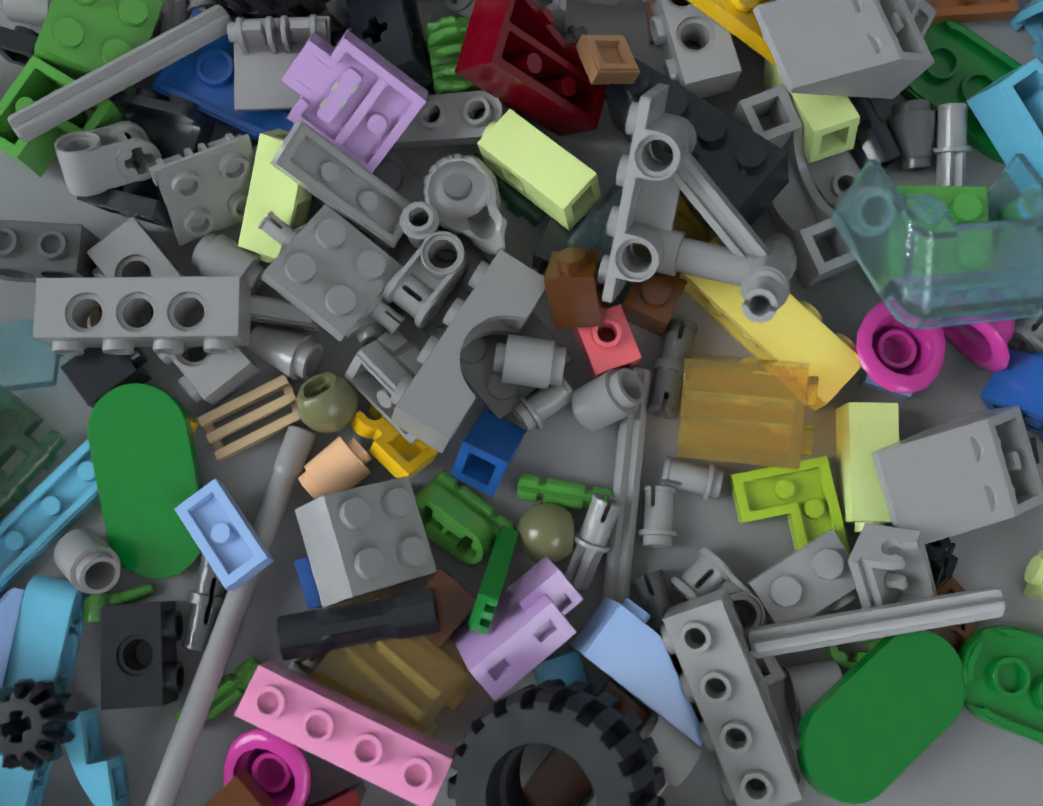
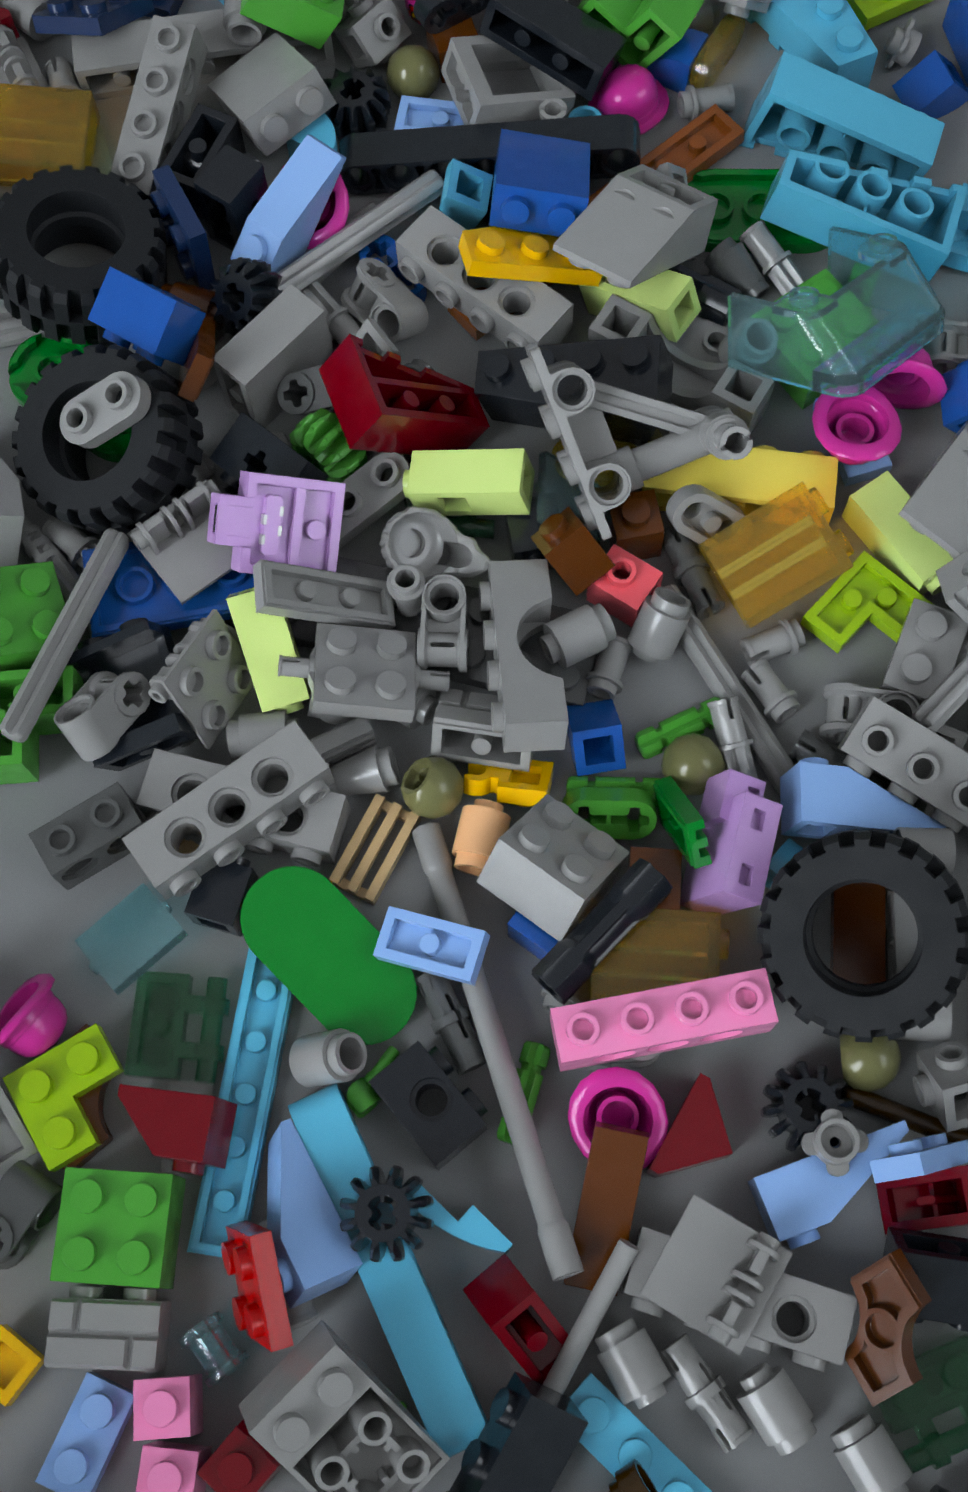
camera: 30 degrees left, 10 degrees down
(607, 59) = (463, 362): medium nougat tile -> none
(713, 329) = (704, 512): none -> light grey plate

